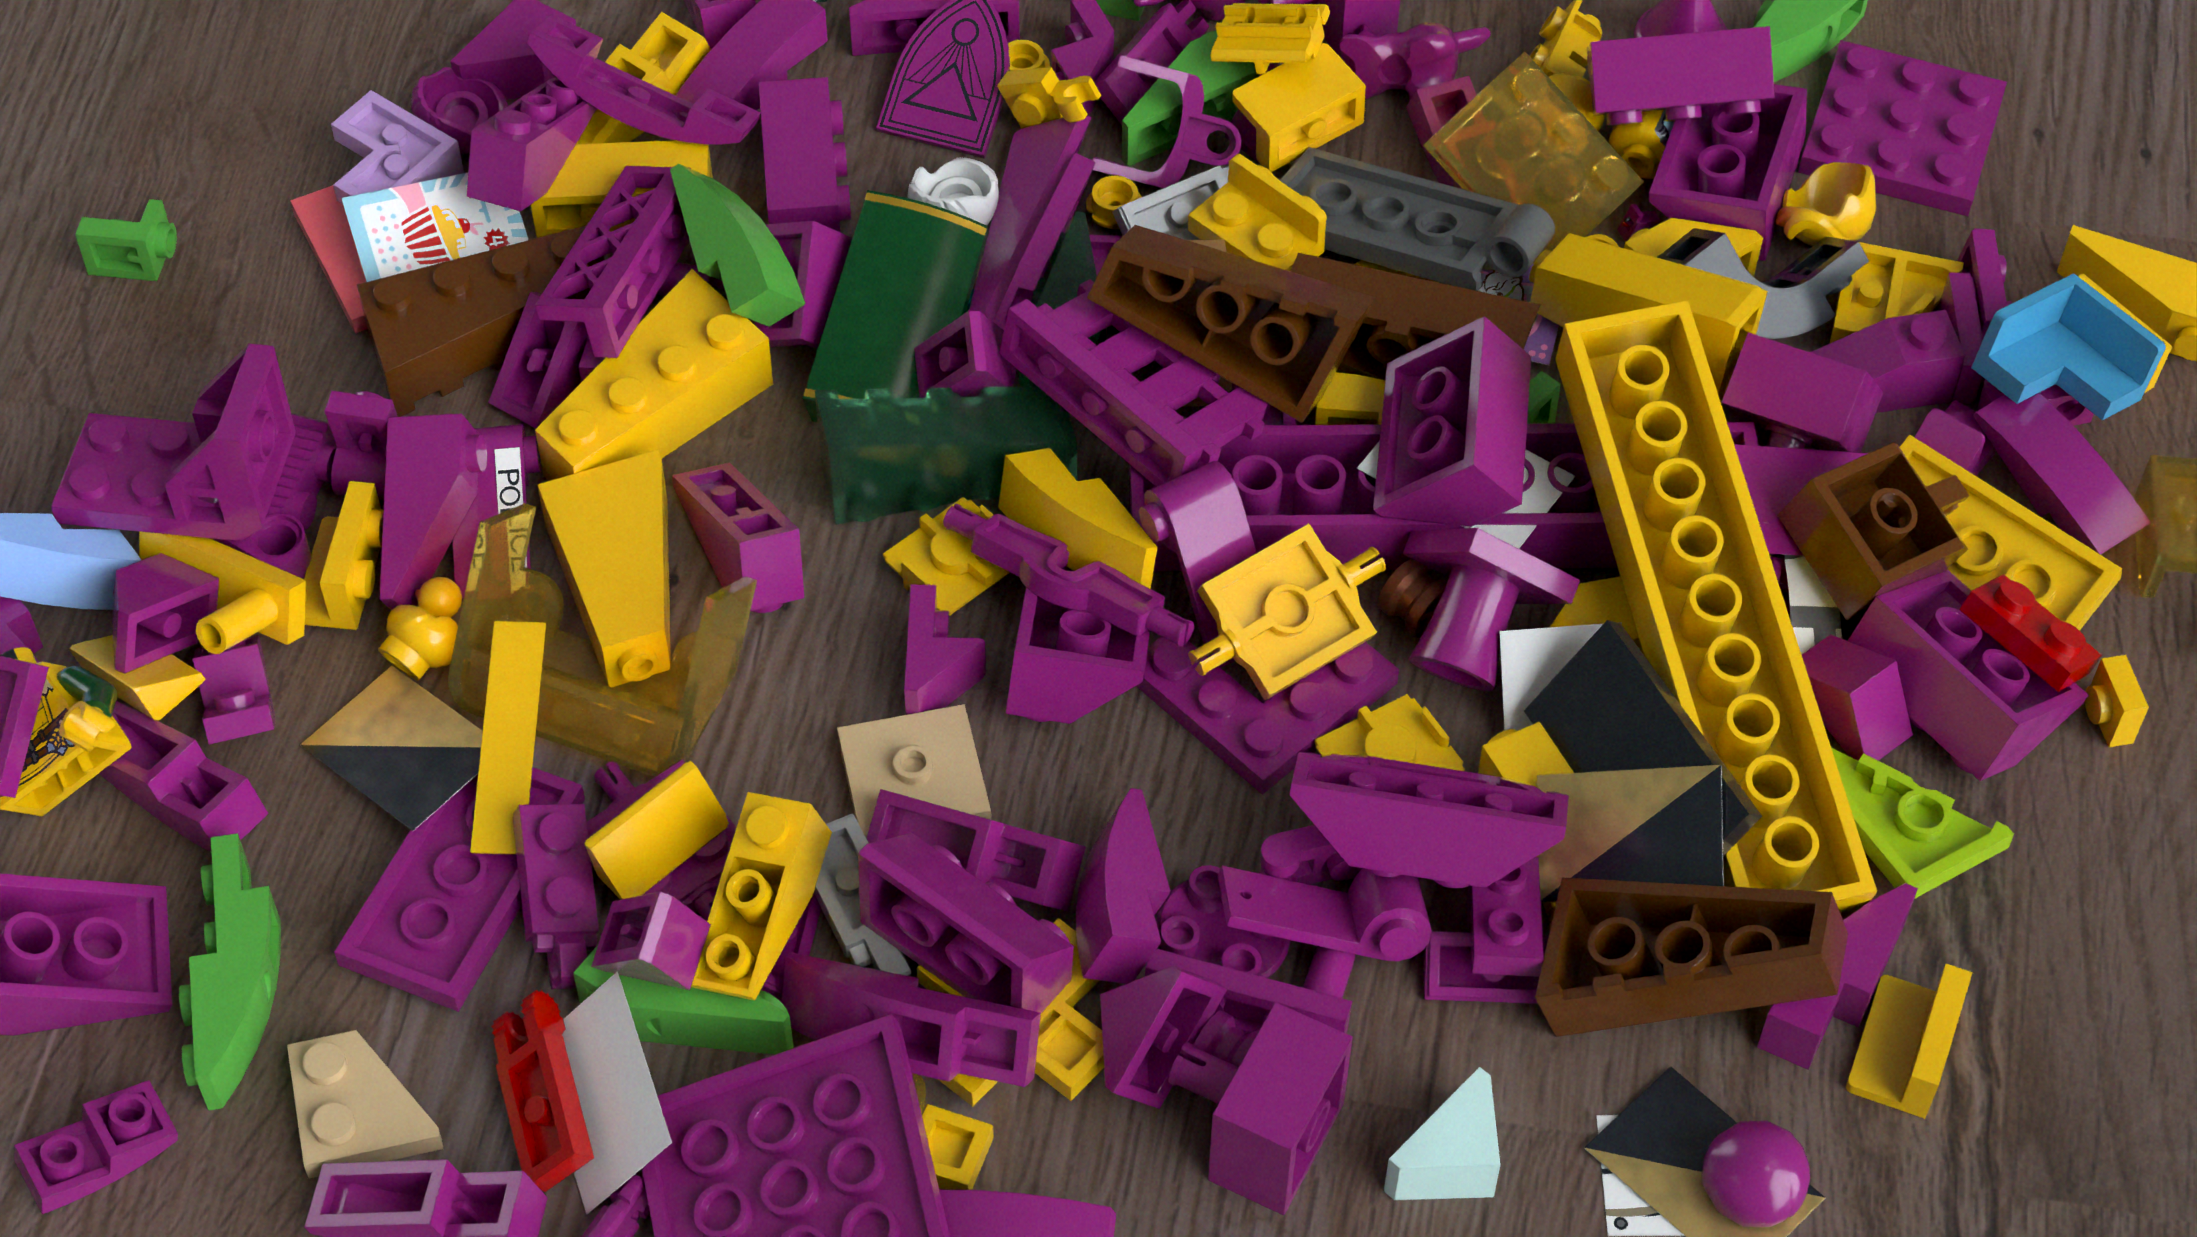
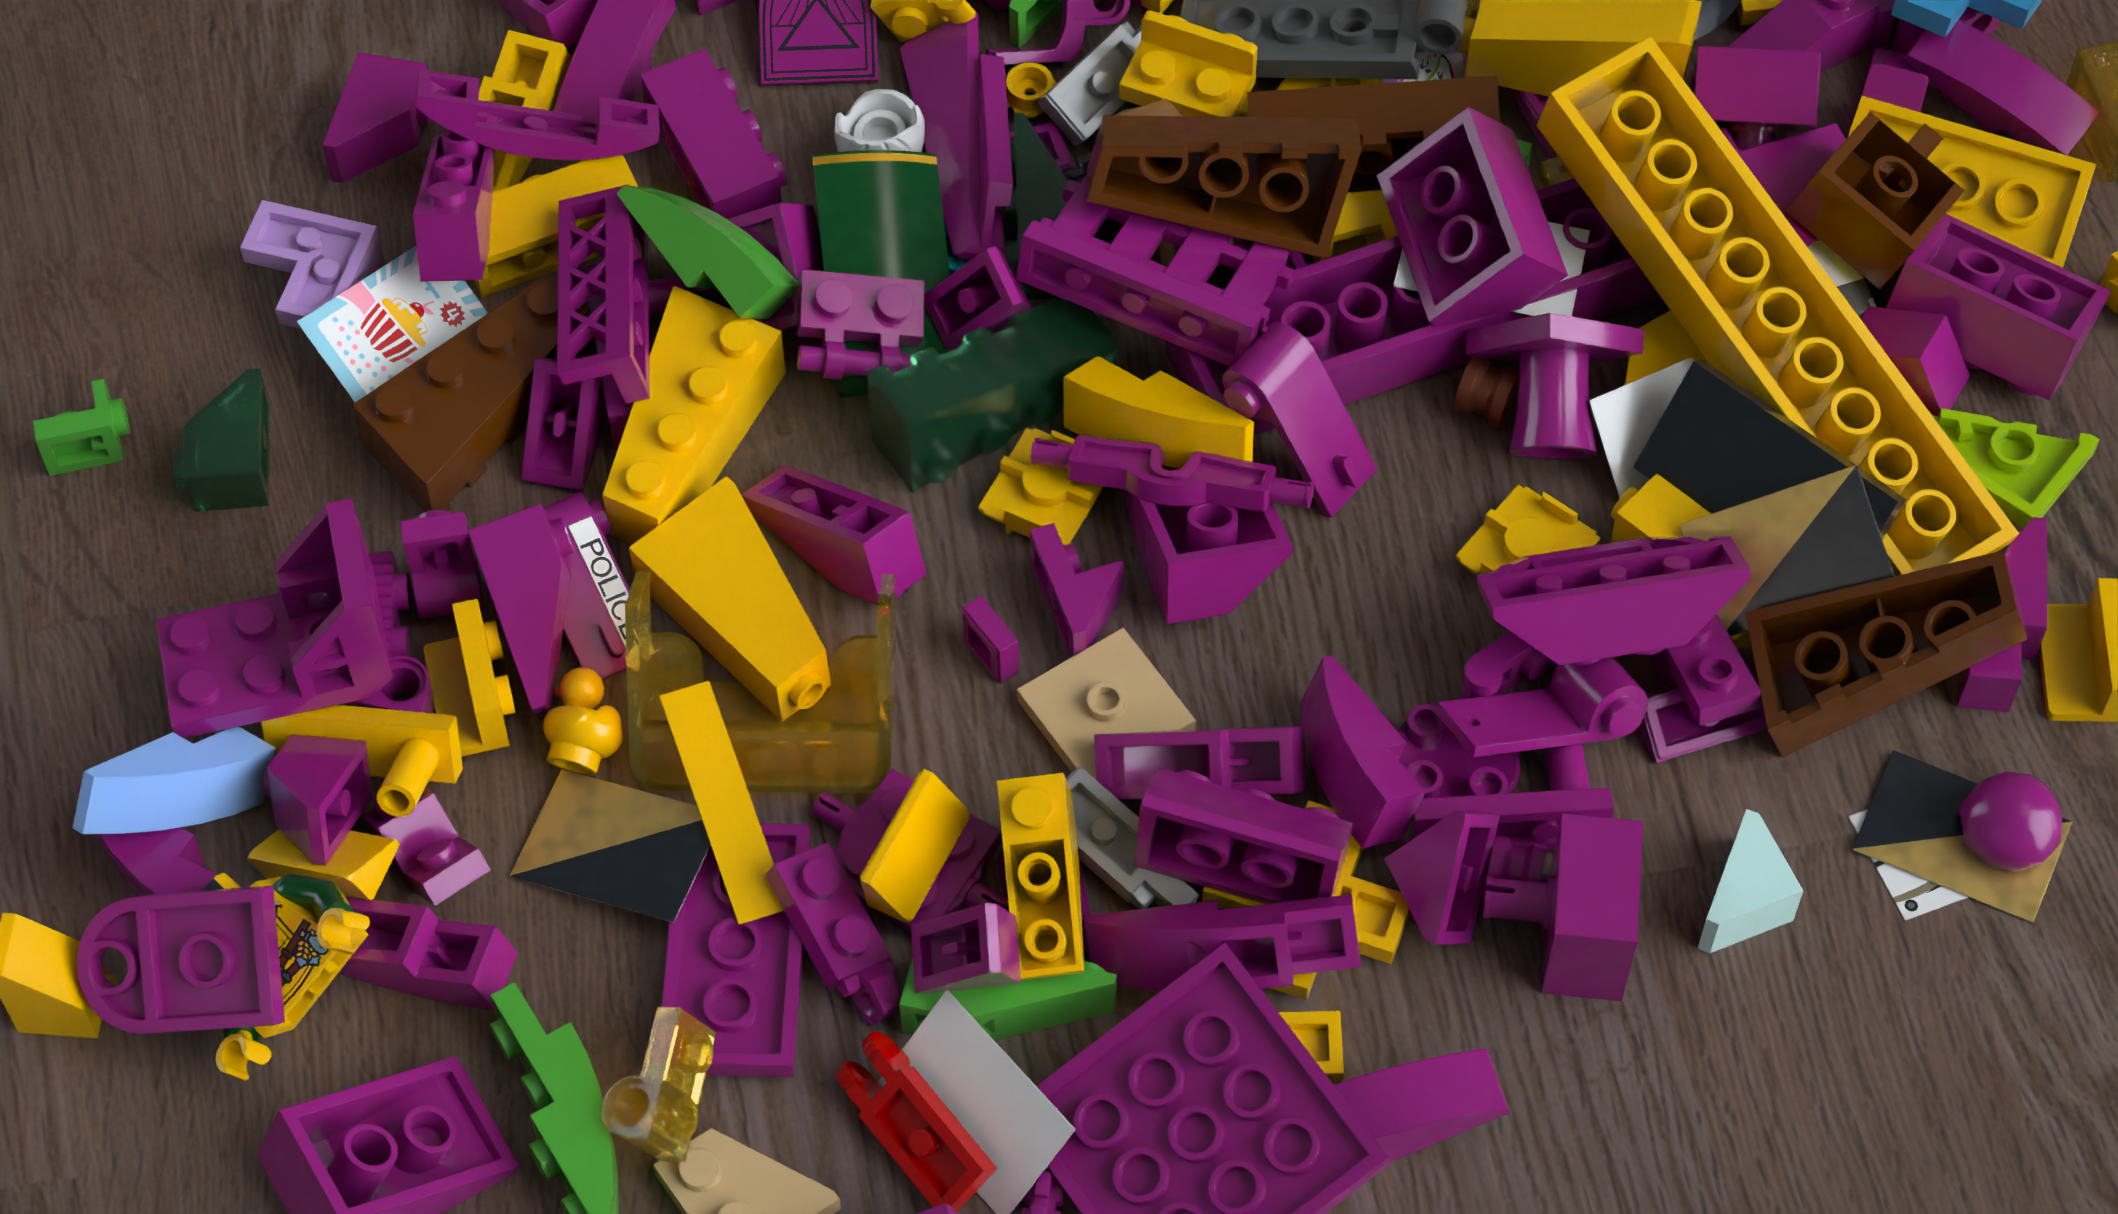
camera: 20 degrees left, 5 degrees up
(244, 292) = (228, 449): none -> clear green slope
(313, 986) = (661, 1105): none -> clear yellow plate
(333, 245) = (295, 370): coral tile -> none
(456, 104) = (351, 188): magenta hair -> none
(832, 674) = (990, 640): none -> magenta tile
(844, 339) = (857, 310): none -> magenta plate
(1257, 737) = (1416, 562): magenta plate -> none
(1287, 611) = (1389, 443): yellow plate -> none
(2031, 632) = (2042, 249): red plate -> none

